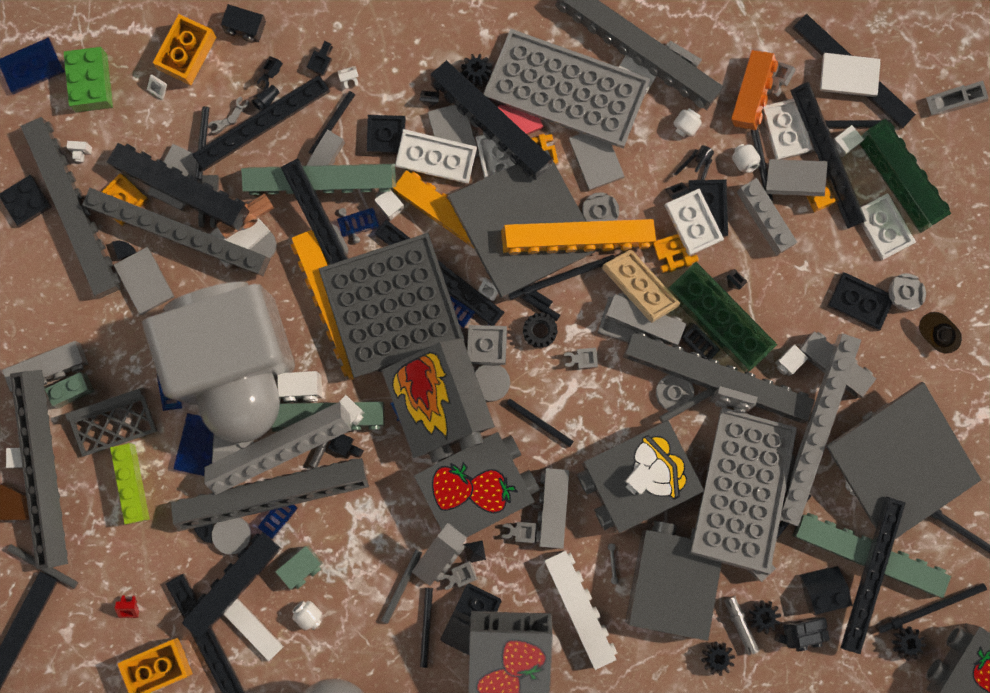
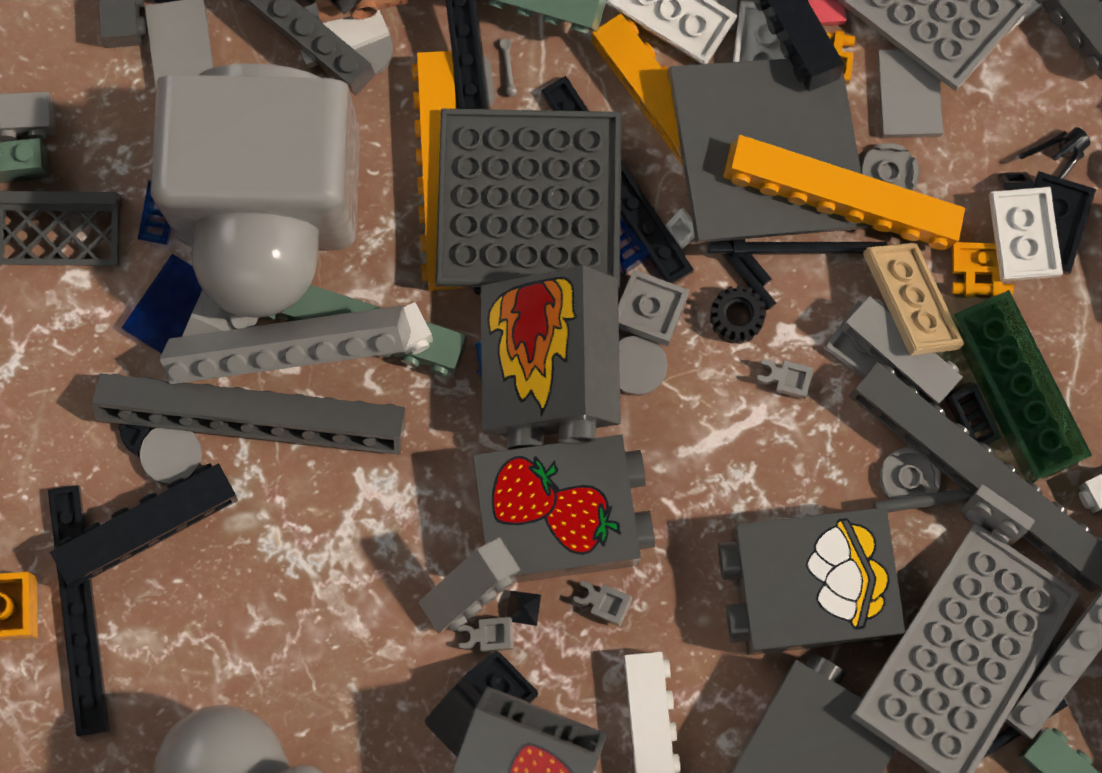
camera: 20 degrees right, 5 degrees down
(129, 483) = (50, 325): lime brick -> none
(253, 630) = (151, 605): white tile -> none
(272, 534) = (243, 468): clear blue slope -> none
(299, 568) = (253, 537): sand green brick -> none
(300, 386) = (352, 269): white brick -> none
(307, 615) = (238, 611): white head -> none
(318, 455) = (345, 378): flat silver pin -> none
(343, 445) = (384, 380): black plate -> none
(375, 223) = (534, 56): clear blue slope -> none
(389, 204) = (578, 55): white brick -> none
(401, 587) = (393, 622): dark grey bar -> none
(426, 627) = (410, 694): black bar -> none
(540, 423) = (689, 450): black bar -> none
(553, 508) = (666, 583): light grey brick -> none
(611, 547) = (733, 675): light grey hinge -> none
(639, 479) = (812, 578): white brick -> none
(687, 122) = (1065, 87): white head -> none
(735, 280) = (1059, 342): black slope -> none

